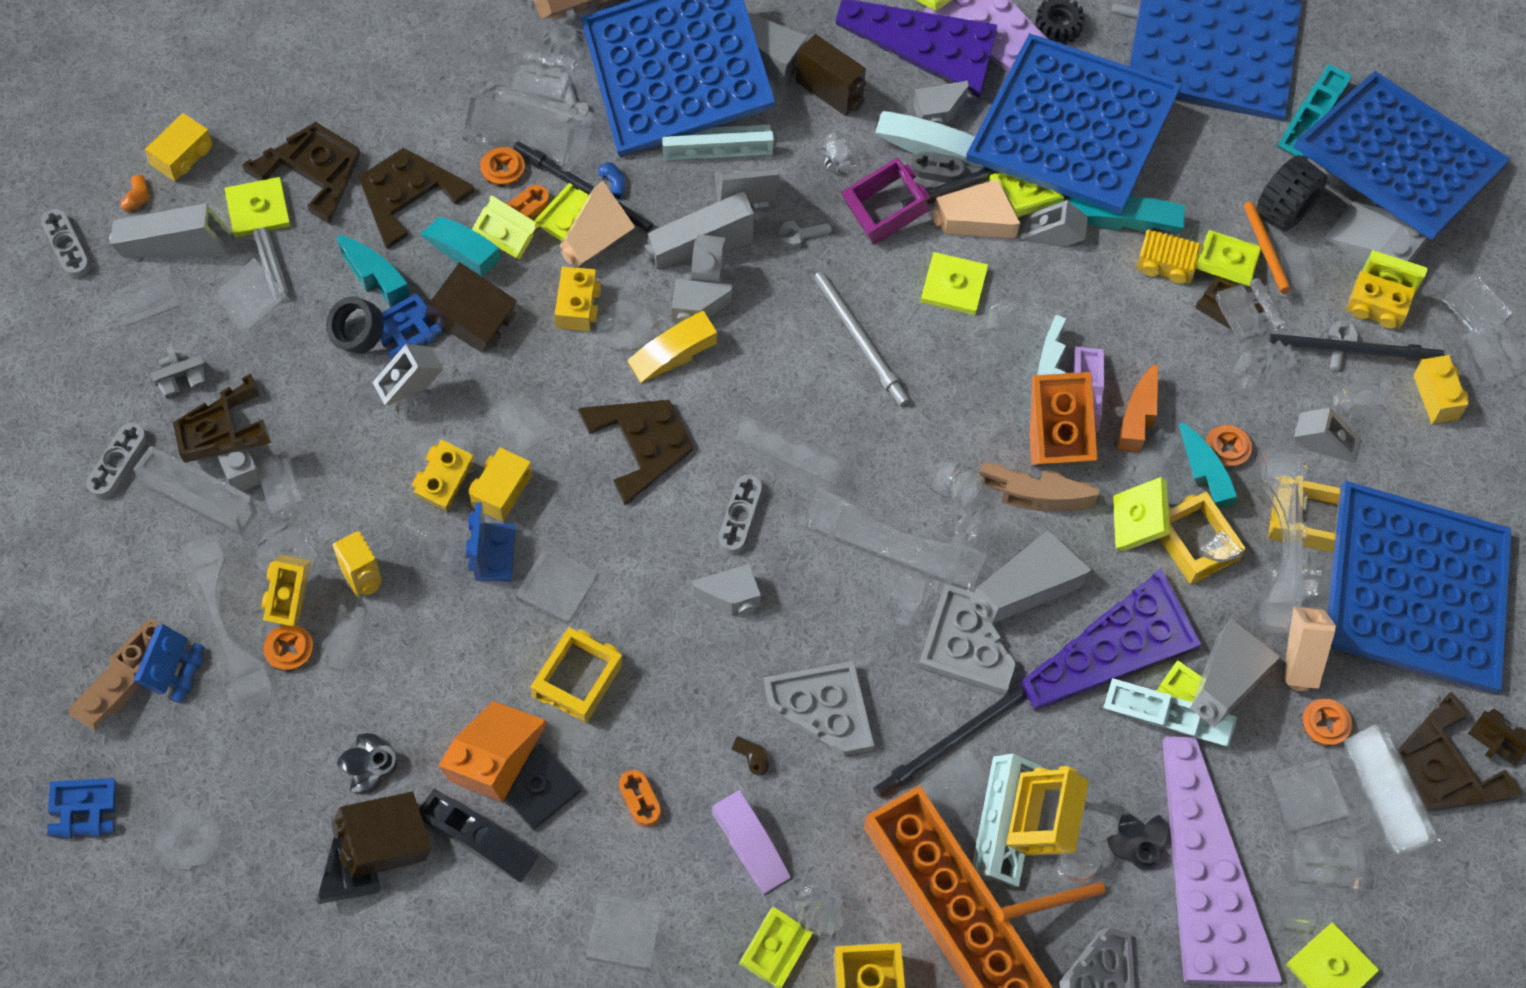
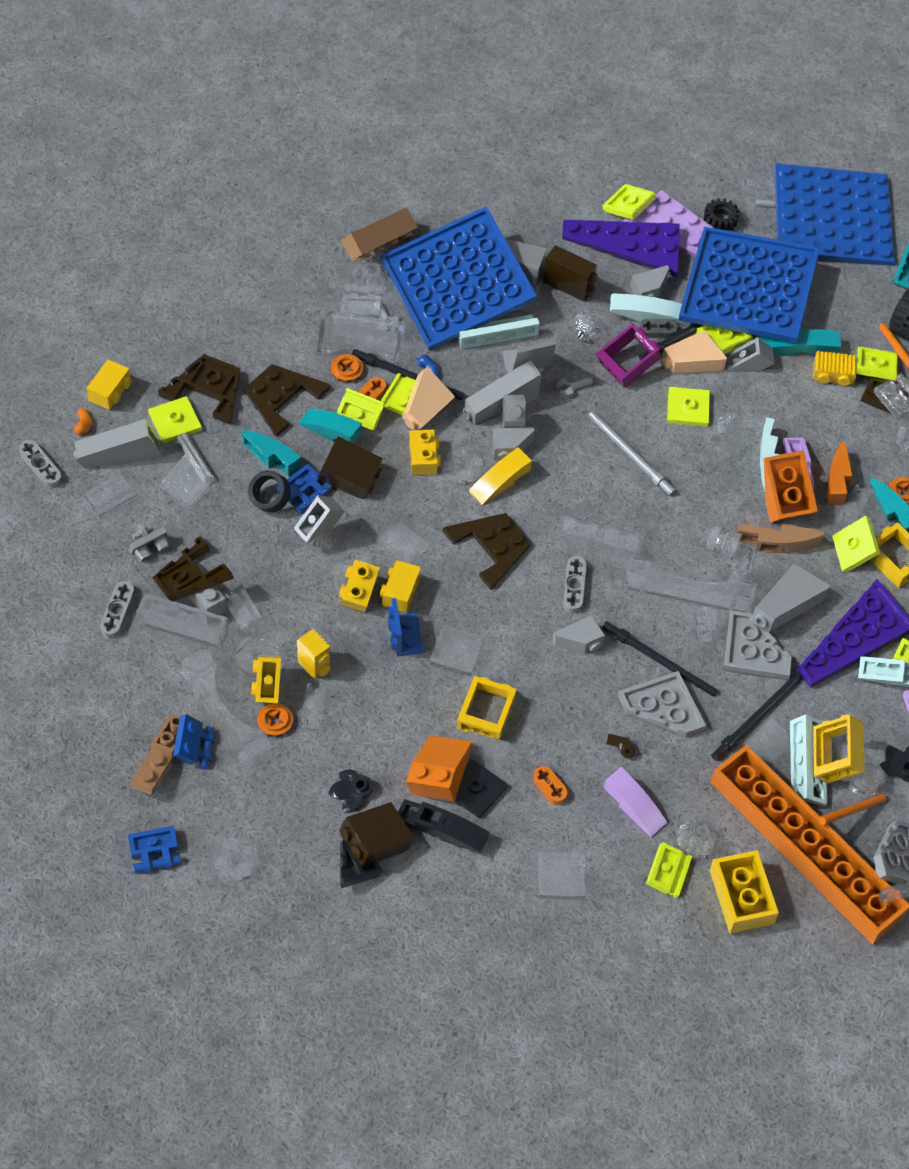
camera: 10 degrees left, 5 degrees down
(790, 598) = (624, 636): none -> black bar

